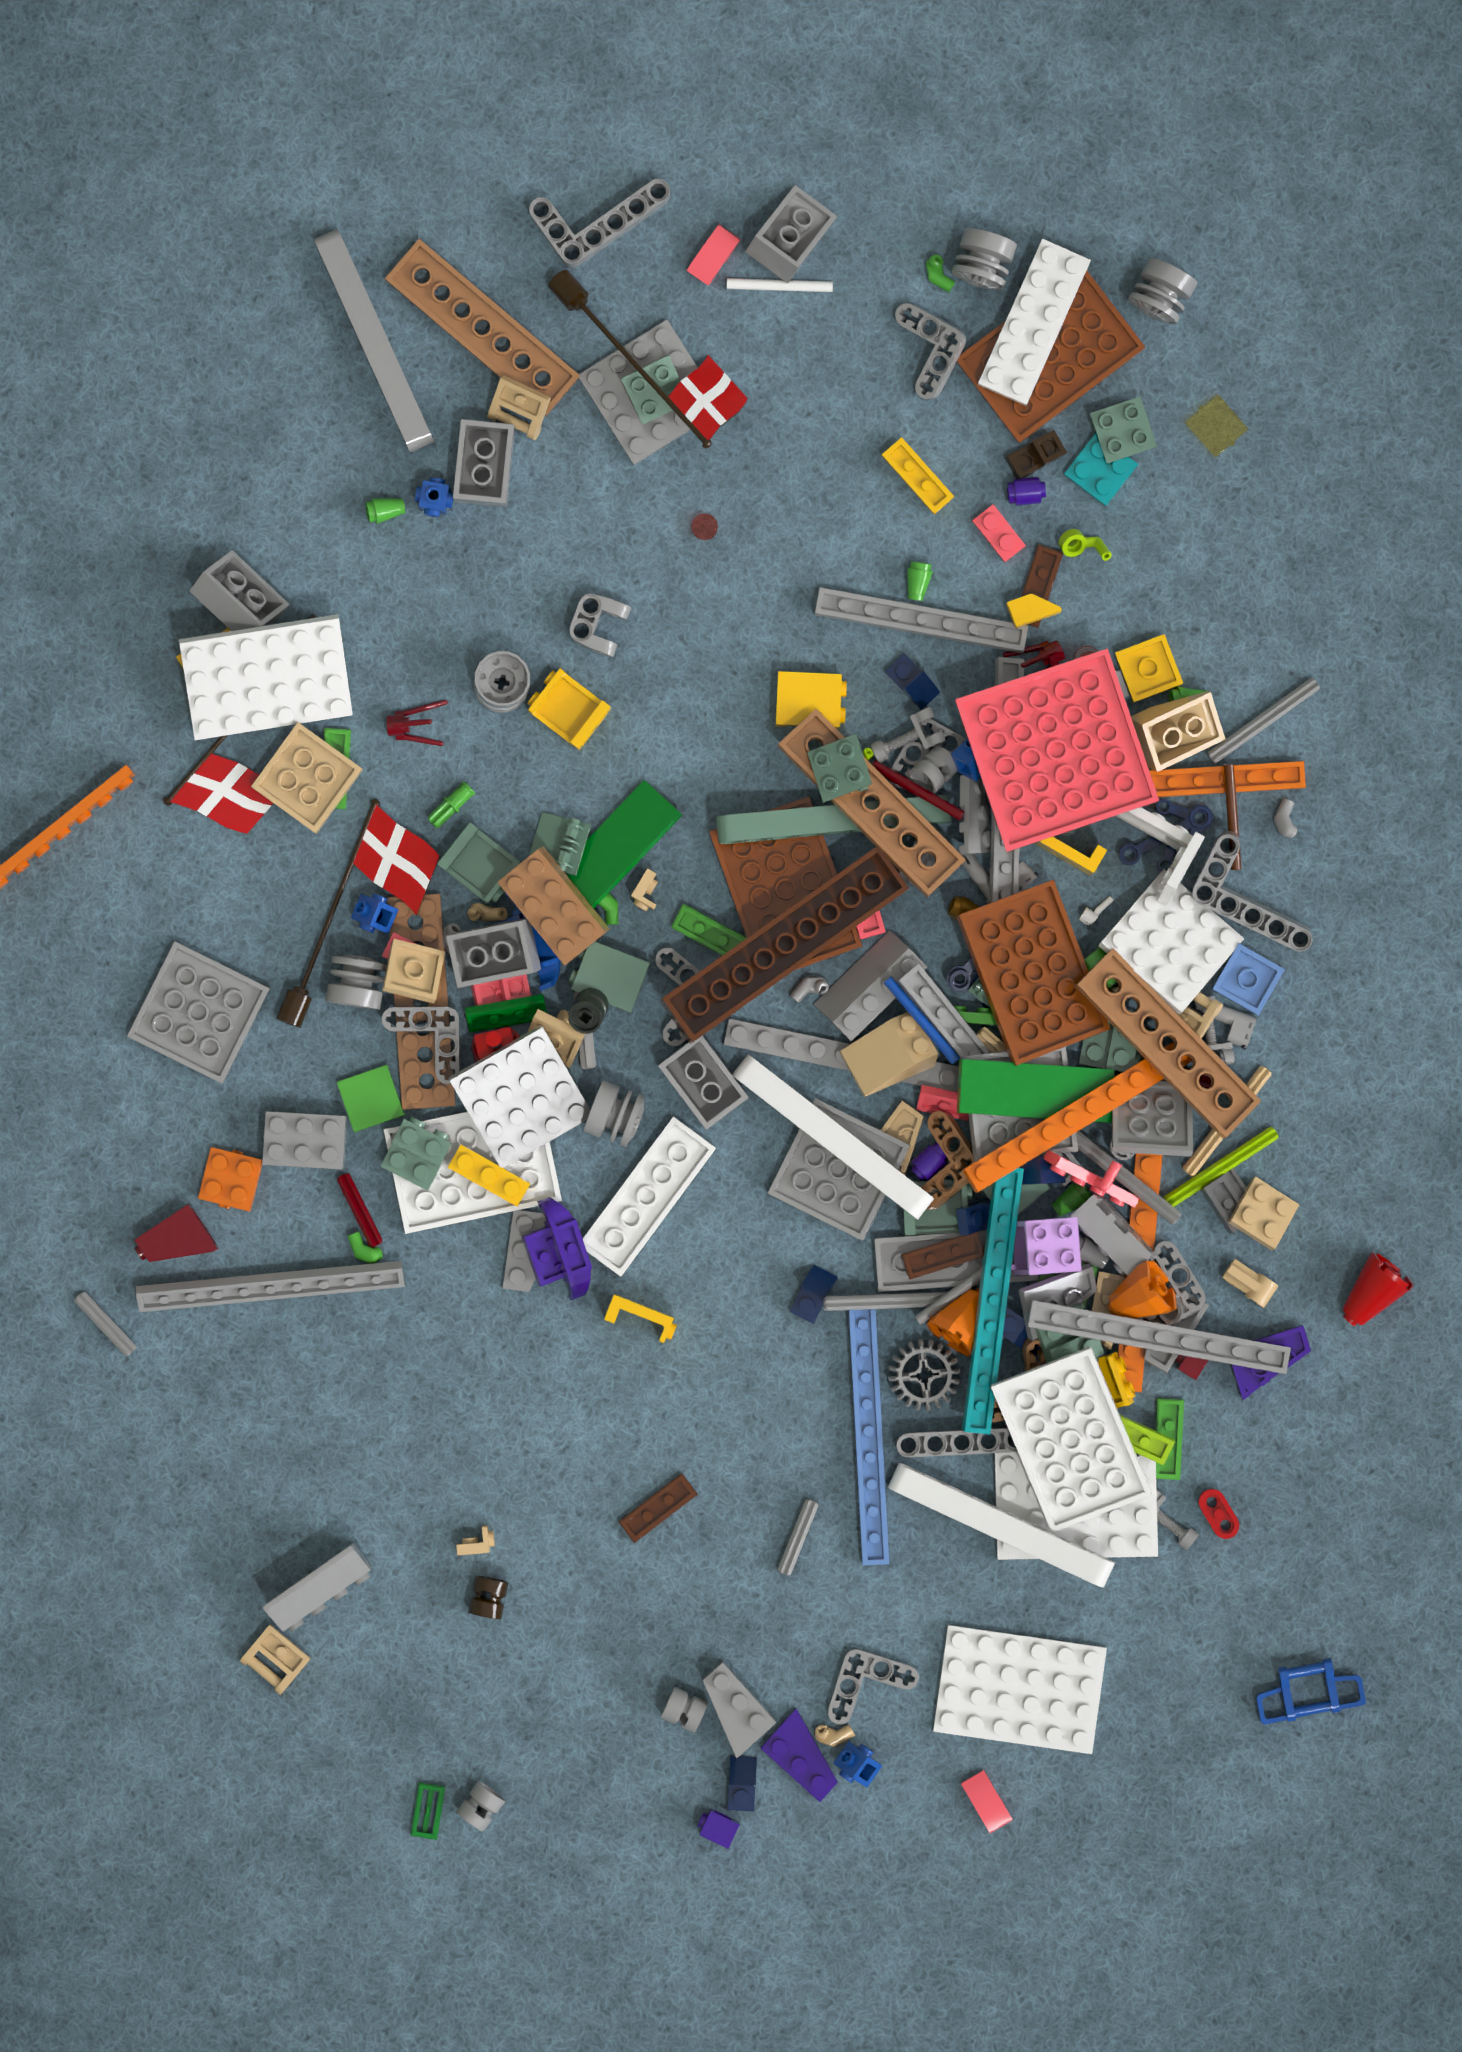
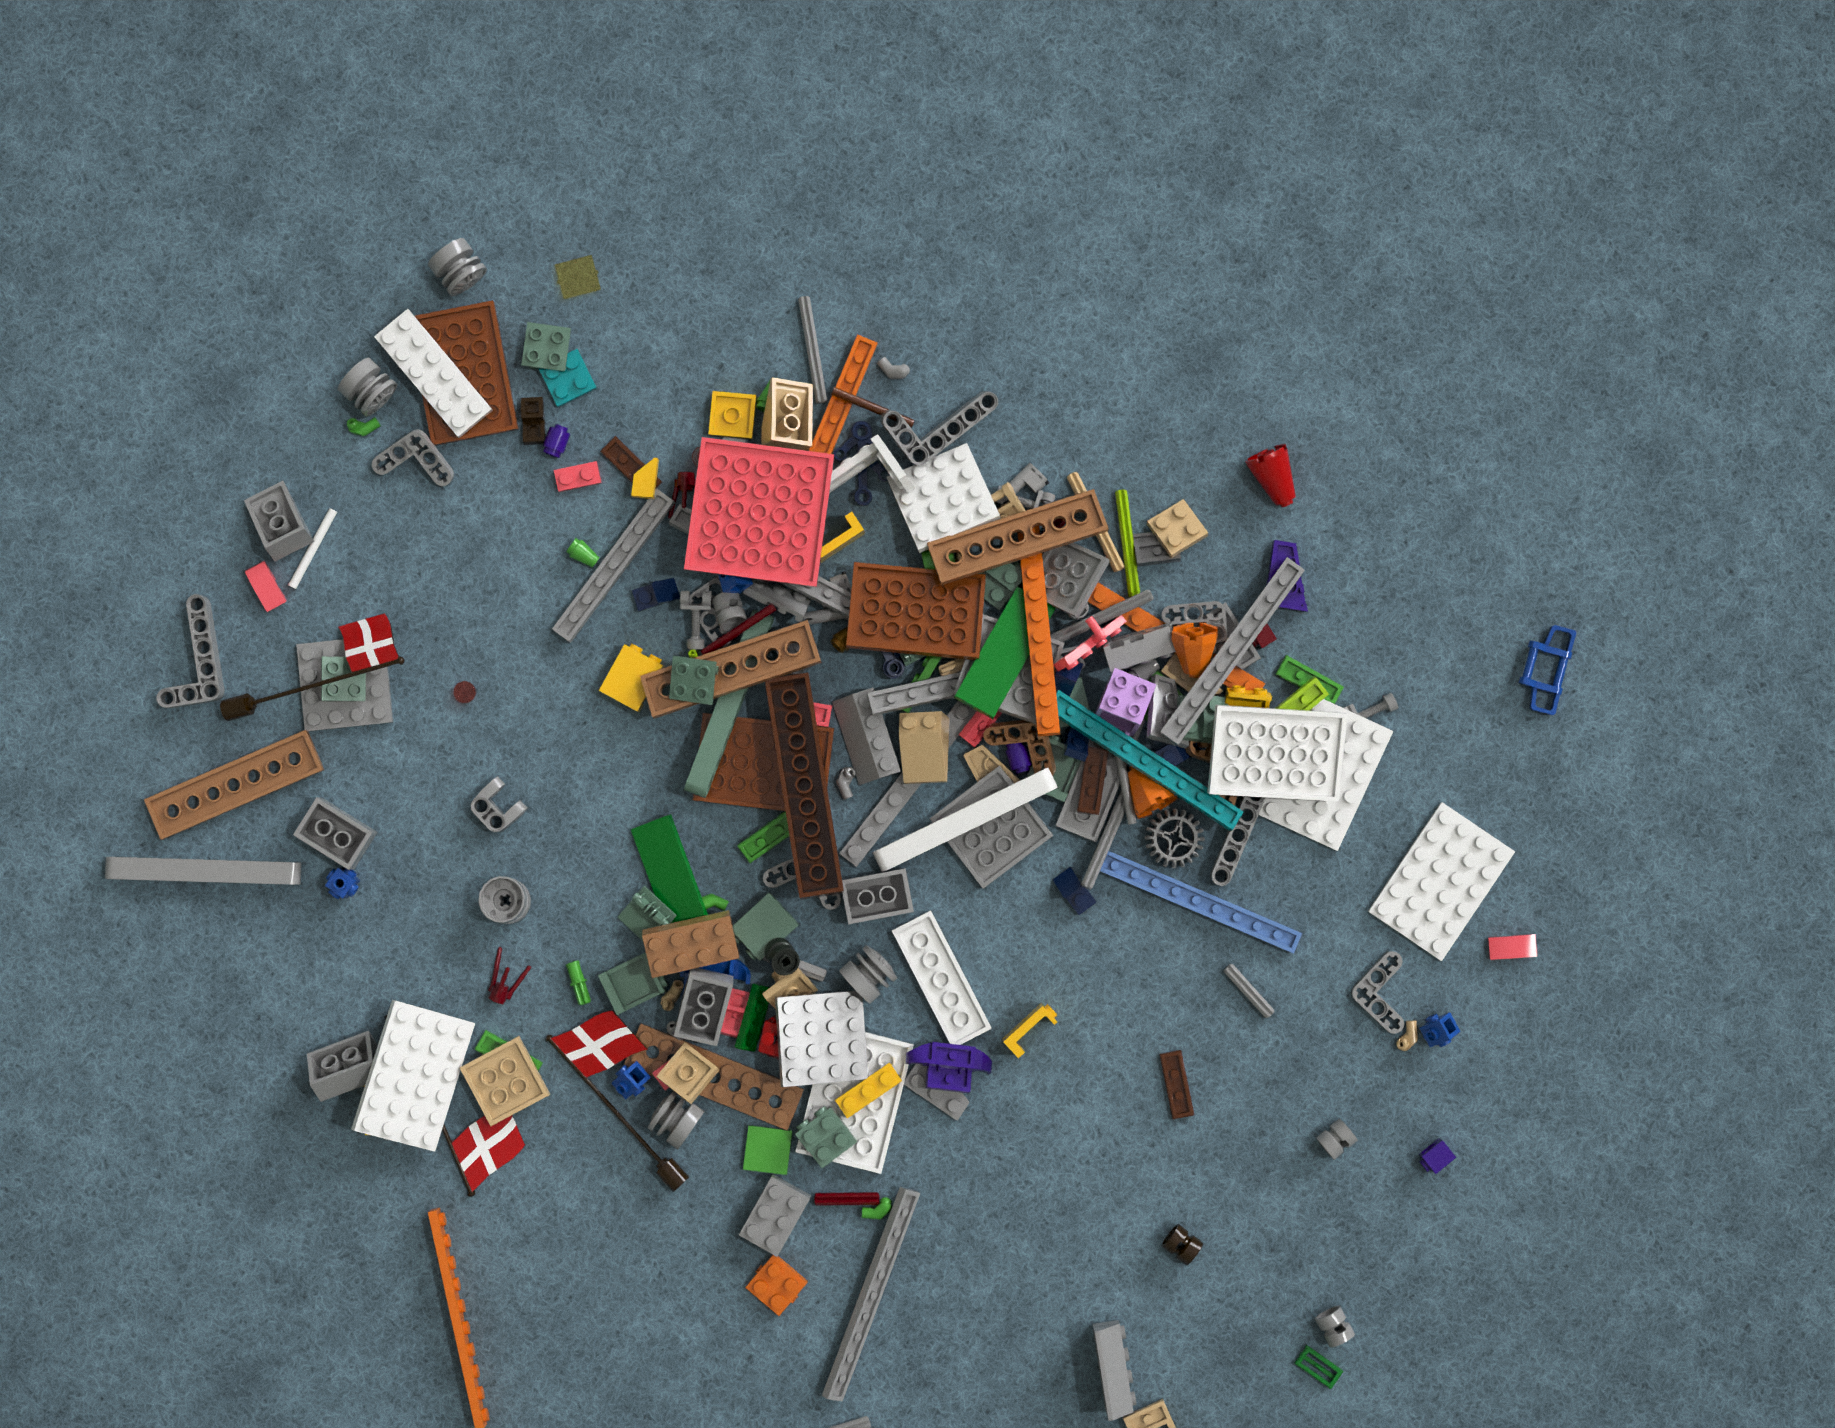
camera: 55 degrees left, 0 degrees up
(176, 1237) = (800, 1346): dark red slope -> none
(198, 1012) = (640, 1247): light grey plate -> none
(383, 509) = (333, 924): bright green cone -> none
(441, 1032) = (743, 1073): light grey beam -> none
(472, 1546) = (1138, 1237): tan bracket -> none
(521, 400) = (302, 782): tan plate -> none
(568, 708) = (549, 860): yellow panel -> none
(647, 886) = (710, 866): tan bracket -> none
(737, 1708) = (1354, 1098): light grey wedge -> none
(742, 1783) = (1411, 1122): dark blue slope -> none
(800, 1757) = (1412, 1069): dark purple wing -> none
(917, 476) = (505, 515): yellow plate -> none
(921, 1020) = (910, 711): blue bar -> none
(1001, 1525) = (1314, 836): white beam -> none
(1071, 1199) = (1098, 665): bright green cone -> none
(1074, 543) = (612, 424): lime plate -> none
(1089, 916) = (893, 549): white hand -> none
(1218, 1513) = (1382, 670): red plate -> none
(1248, 979) = (998, 454): medium blue plate -> none
(1252, 1284) = (1227, 561): tan piece -> none

